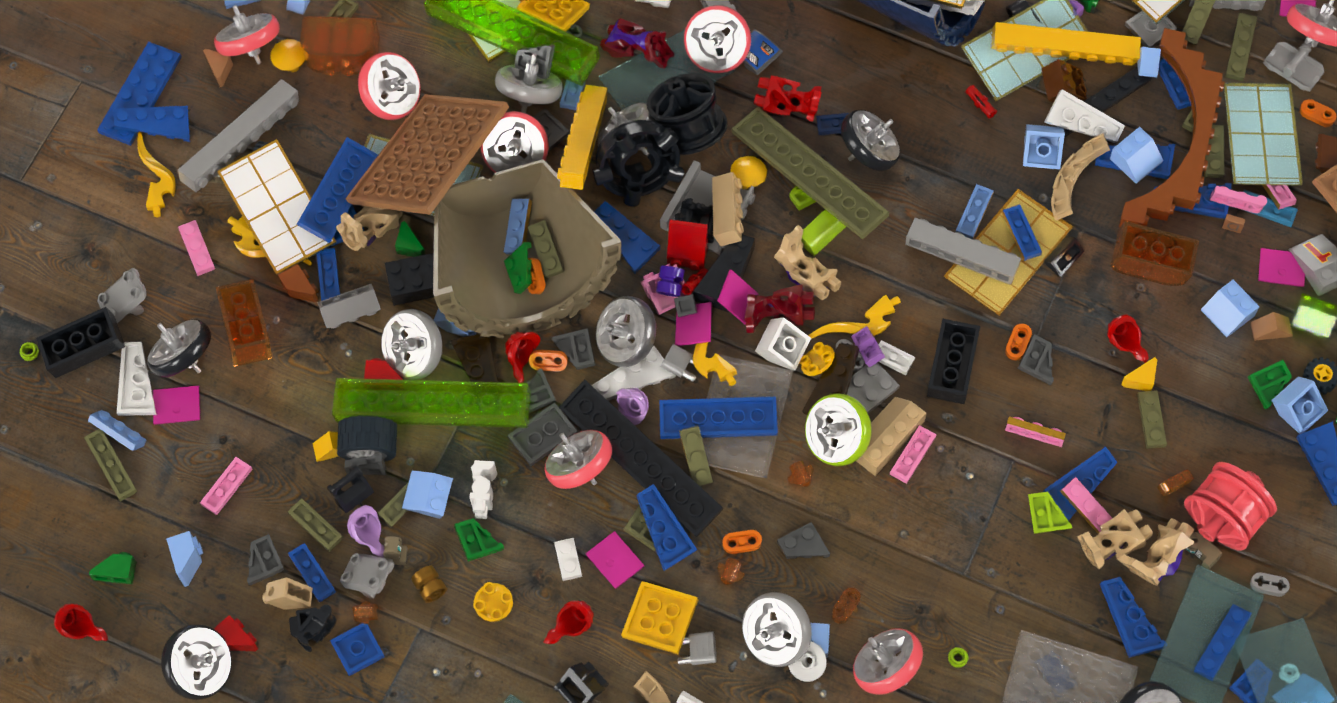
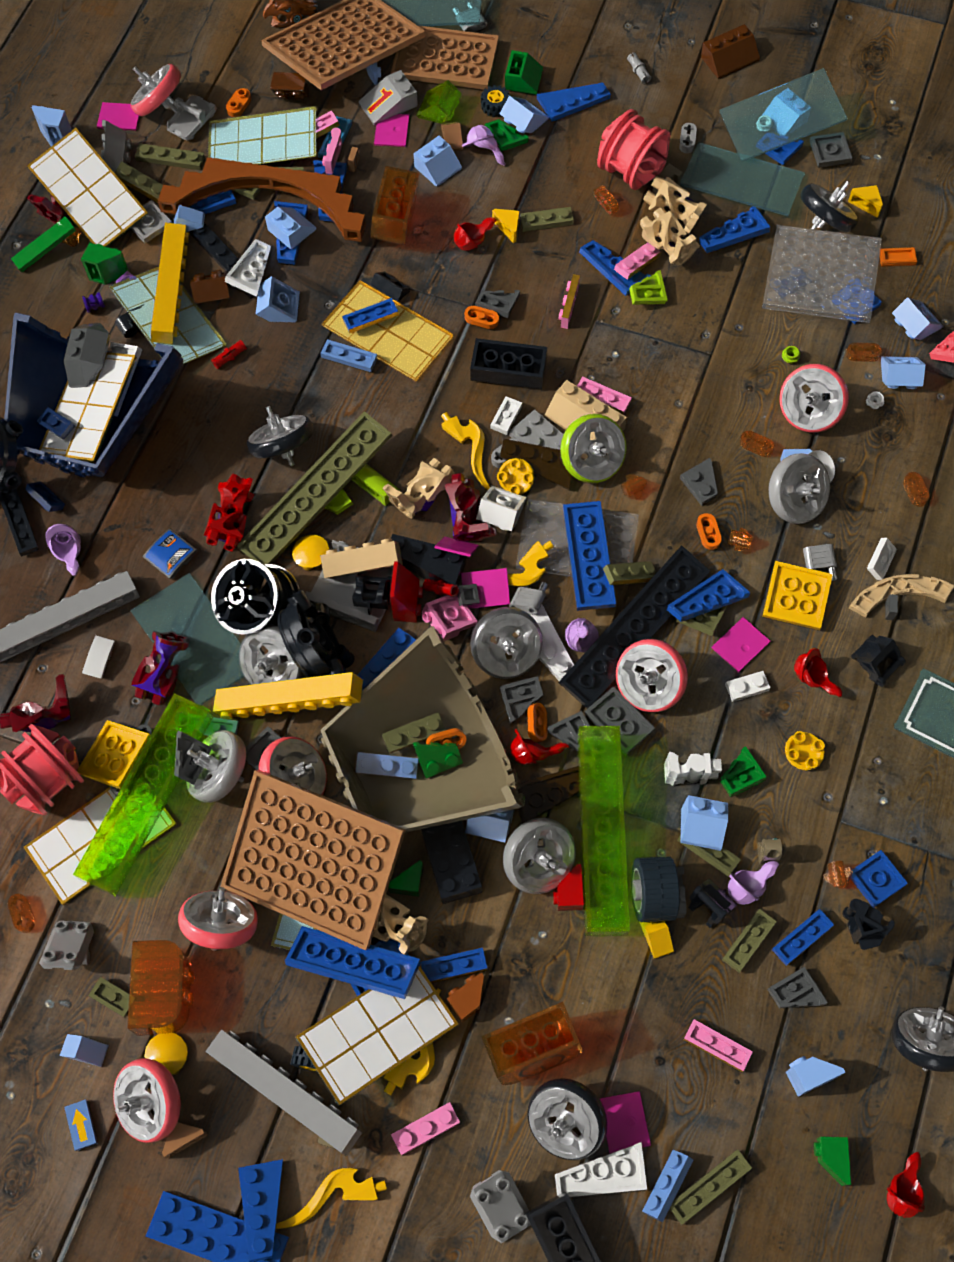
camera: 95 degrees left, 0 degrees up
(235, 636) = (887, 1009): red slope -> none
(287, 594) = (837, 956): tan torso -> none
(349, 306) = (493, 934): light grey brick -> none
(366, 574) = (799, 874): light grey shield -> none
(430, 585) = (801, 811): pearl gold wheel -> none
(670, 281) = (448, 604): dark purple wheel -> none
(734, 45) = (172, 567): wheel -> none
(829, 123) = (254, 469): dark blue plate -> none
(868, 346) = (494, 436): medium lavender slope -> none
(963, 250) = (393, 361): light grey brick -> none
(1070, 172) = (305, 282): tan tile -> none
(1222, 642) = (747, 165): blue plate -> none
(1257, 355) = (483, 137): none -> lavender piece

